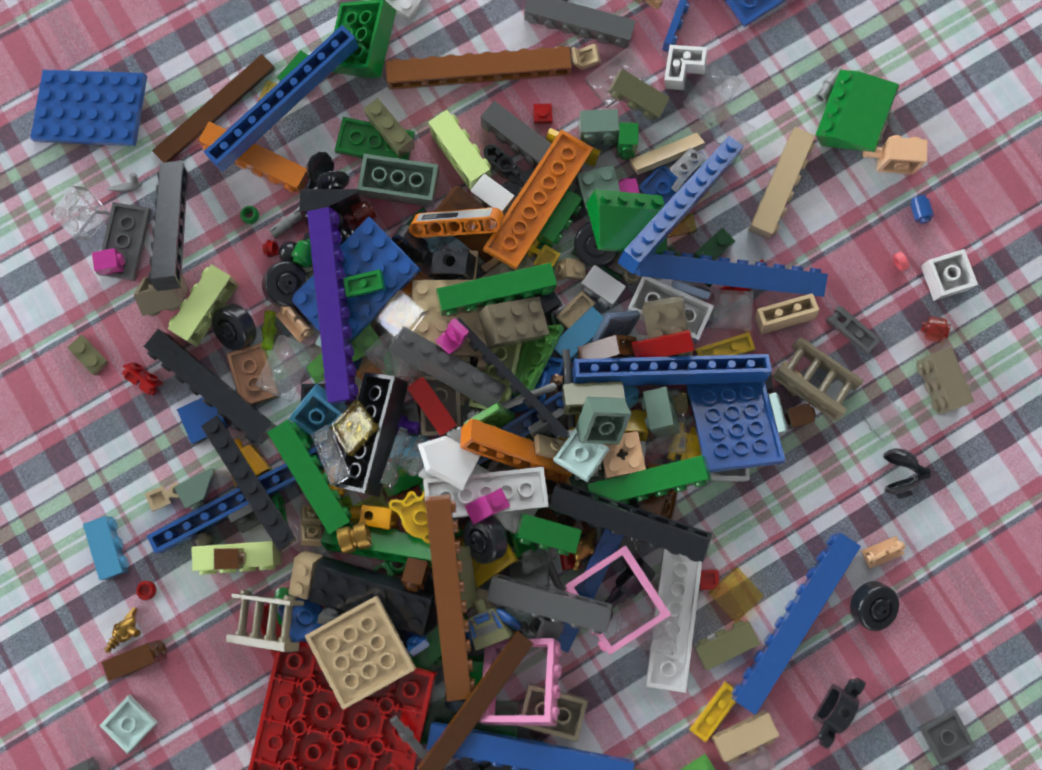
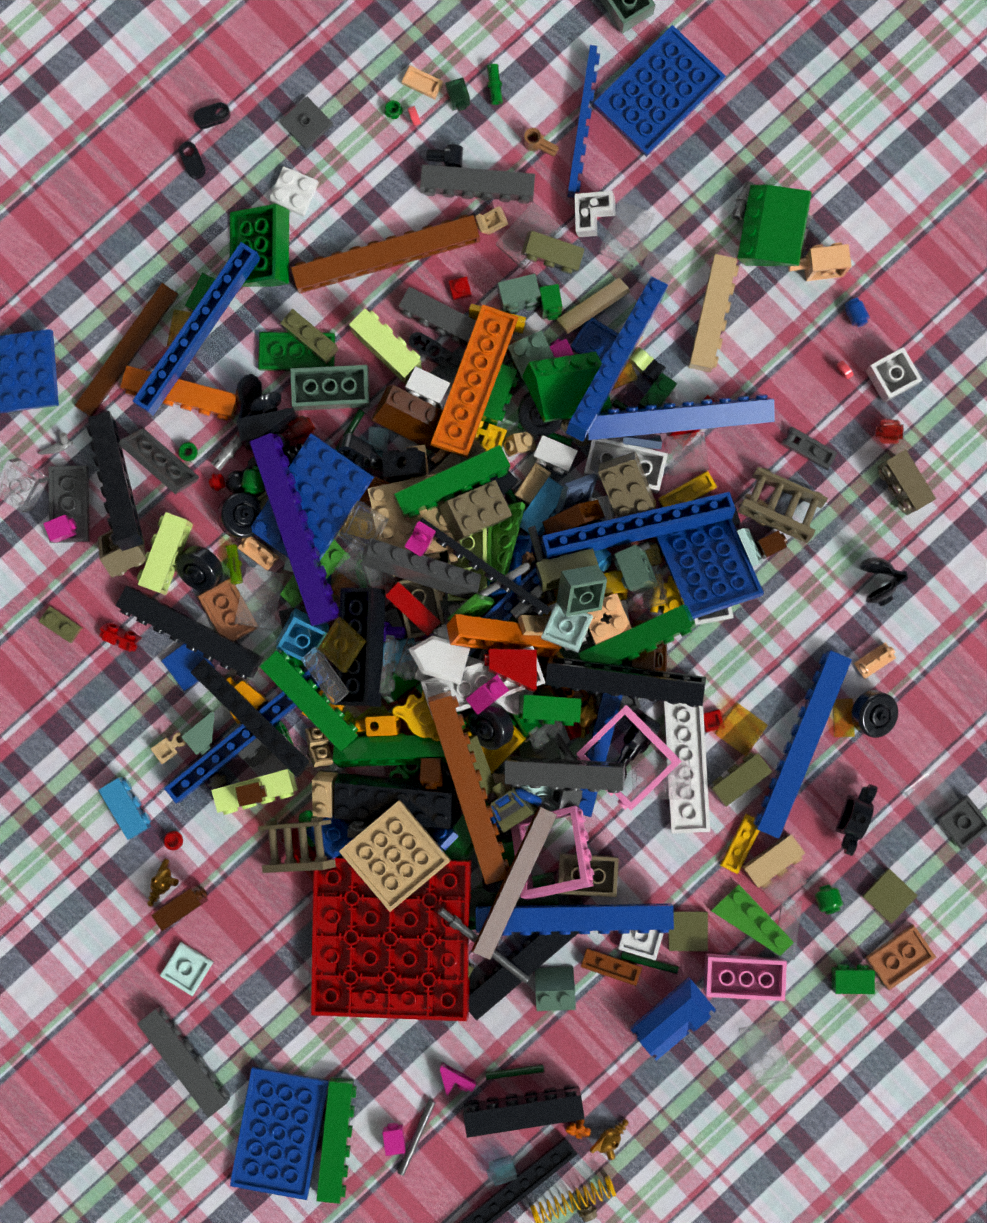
camera: 10 degrees left, 5 degrees up
(218, 216) = (159, 460): none -> dark grey tile
(350, 538) = (365, 750): pearl gold wheel -> none
(364, 283) = (321, 502): green plate -> none
(464, 218) = (398, 422): orange beam -> none
(520, 482) = (514, 666): none -> red slope
(664, 345) = (626, 504): red tile -> none
(686, 167) = (615, 317): light grey bracket -> none
(708, 219) = (646, 365): none -> leg
(786, 313) = (741, 446): tan brick -> none
(840, 604) = (842, 718): none -> clear yellow tile

